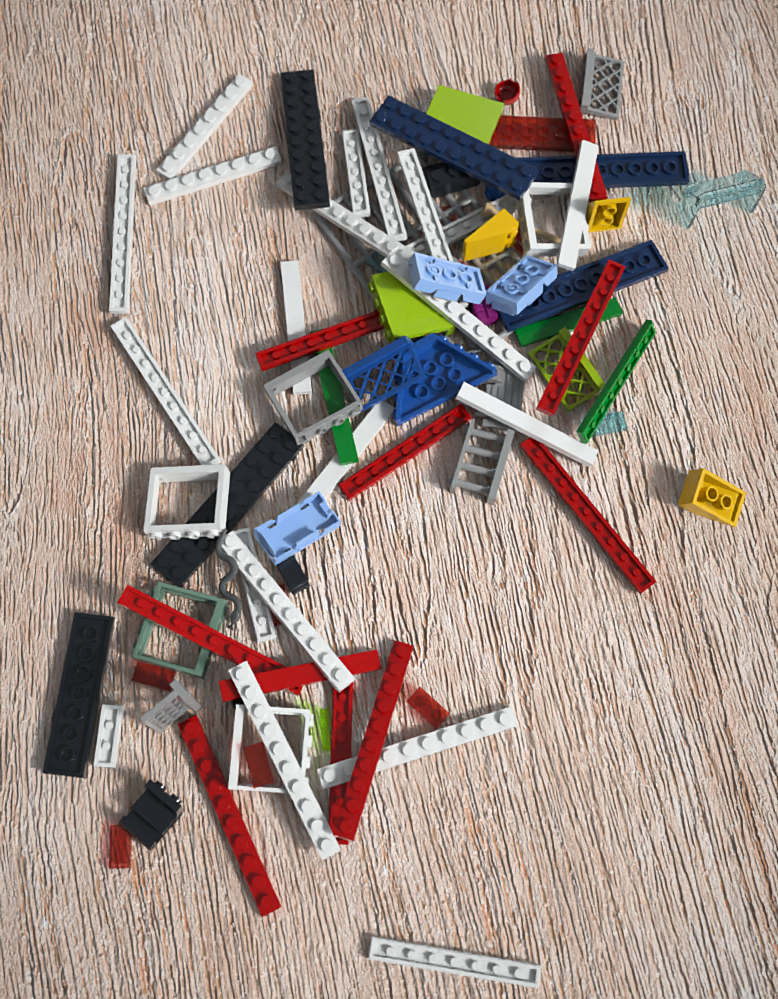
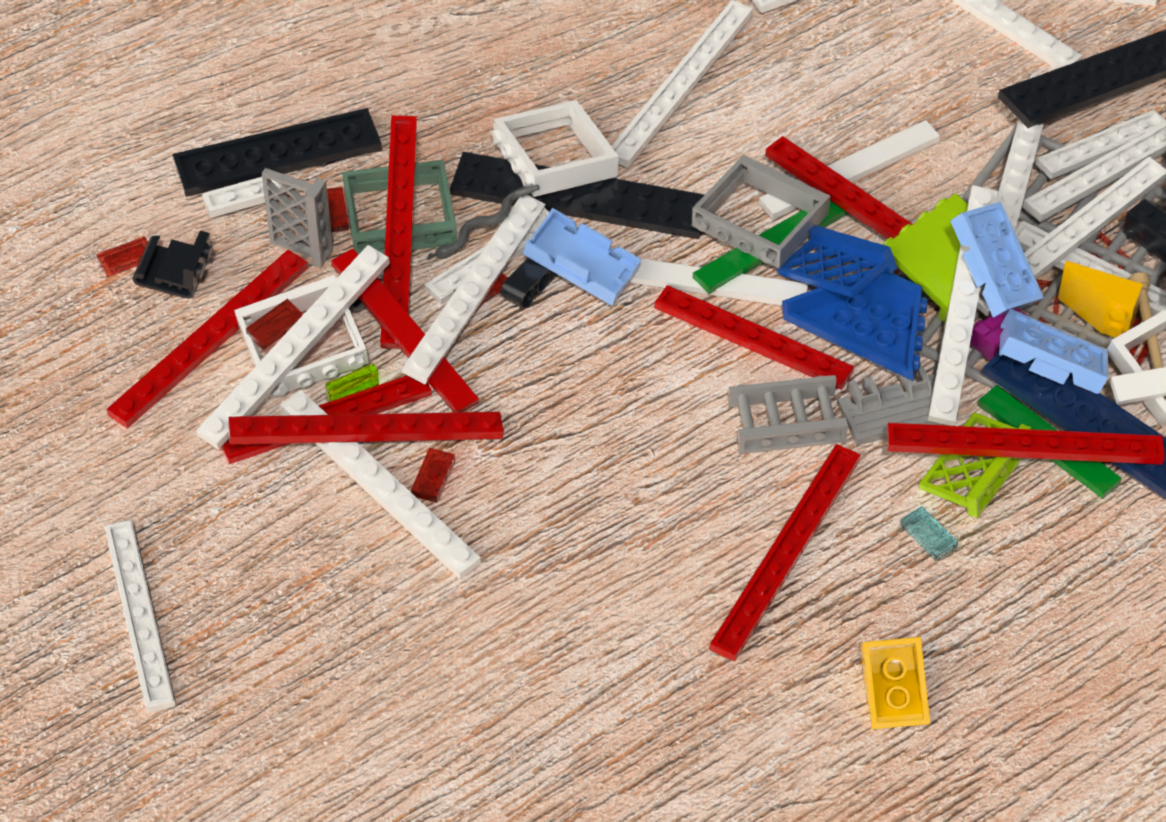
camera: 65 degrees right, 20 degrees down
(527, 424) = (865, 439): white tile -> none
(616, 382) = (994, 513): green tile -> none

